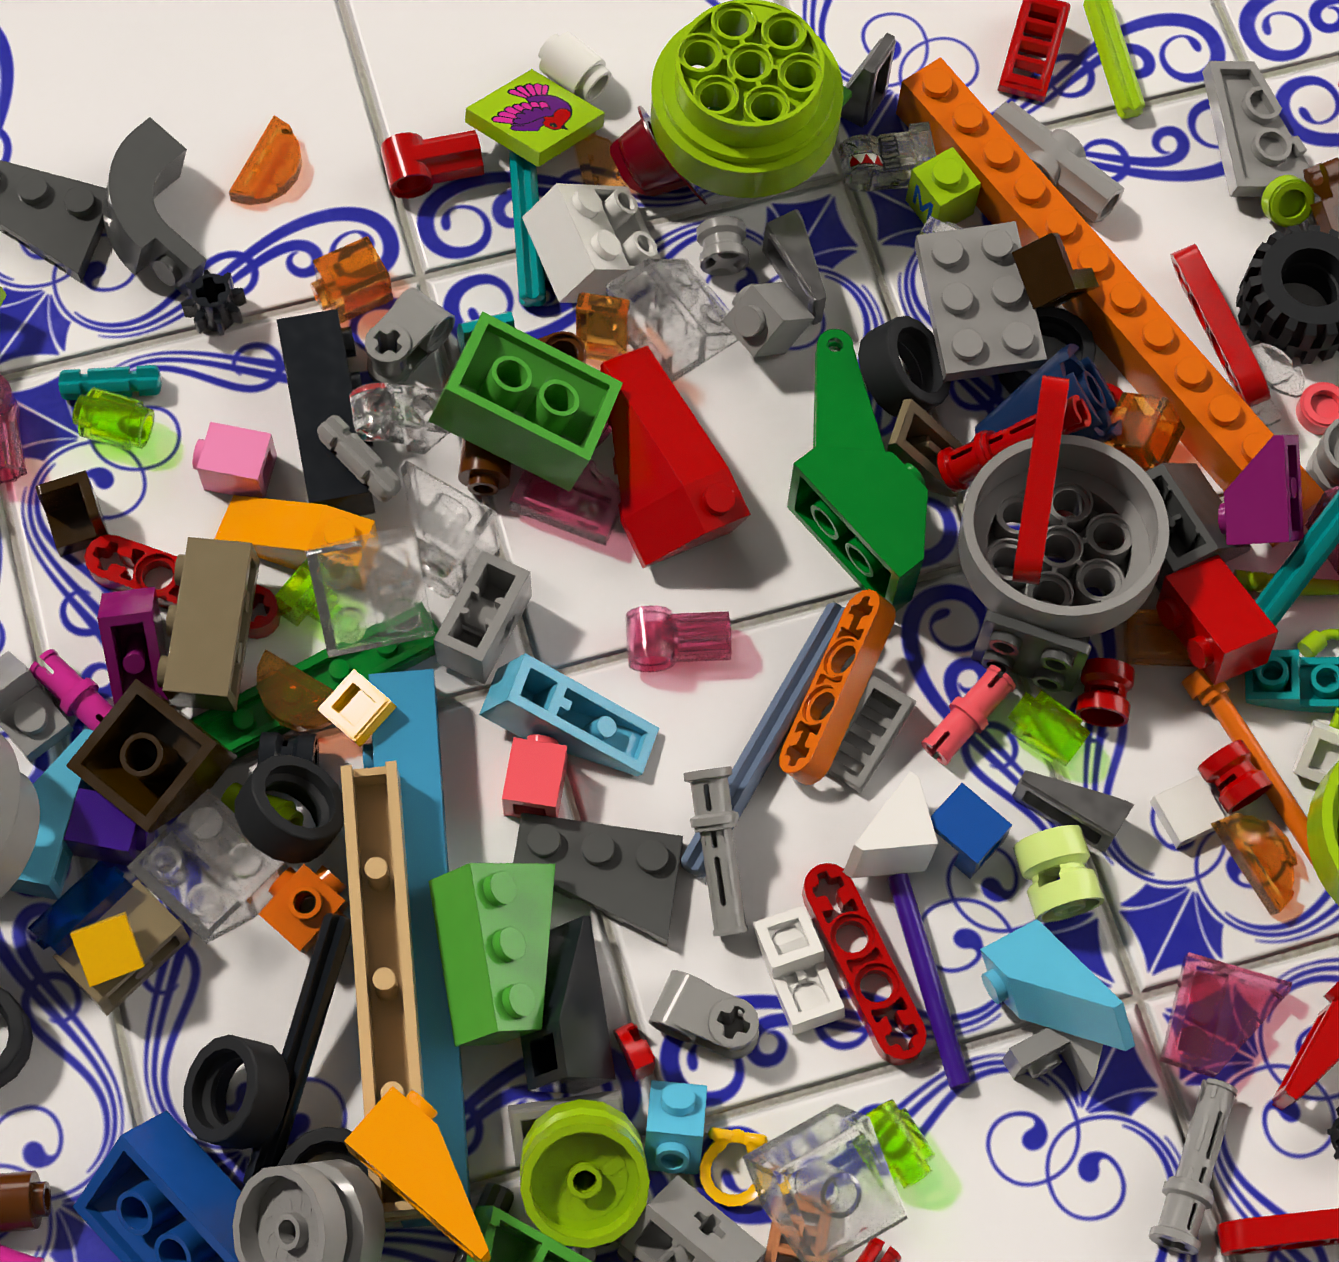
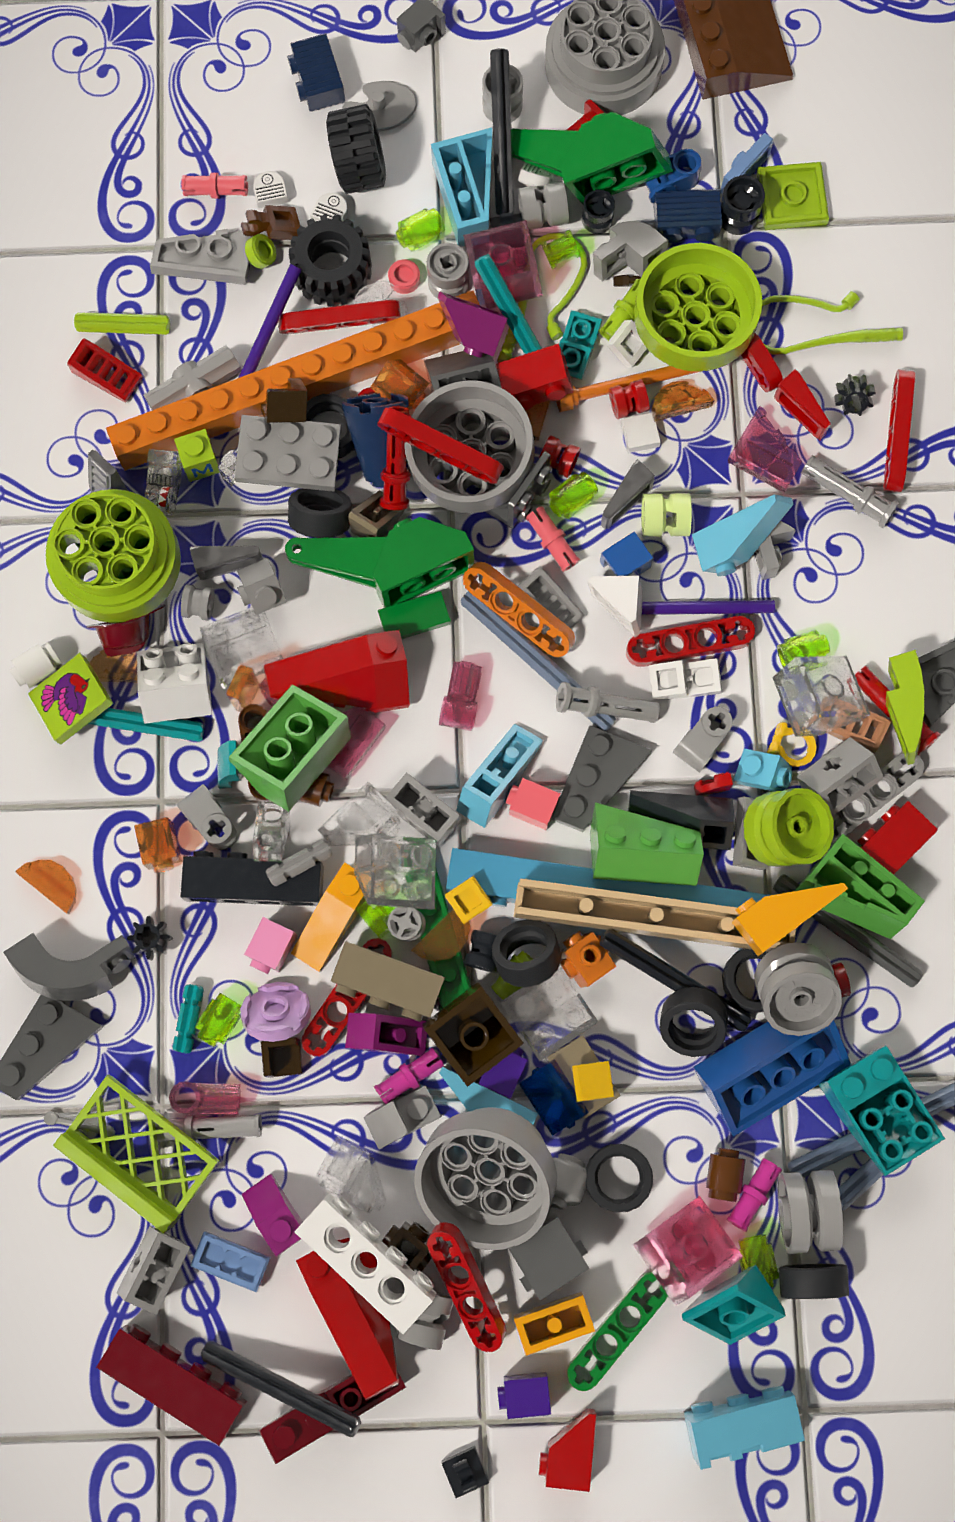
camera: 70 degrees left, 10 degrees up
(136, 487) = (275, 1012): none -> lavender tile
(292, 628) = (400, 920): none -> light grey wheel
(417, 164) = (81, 782): red piece -> none
(788, 546) = (415, 615): none -> green tile
(1183, 233) = (271, 320): none -> dark purple bar

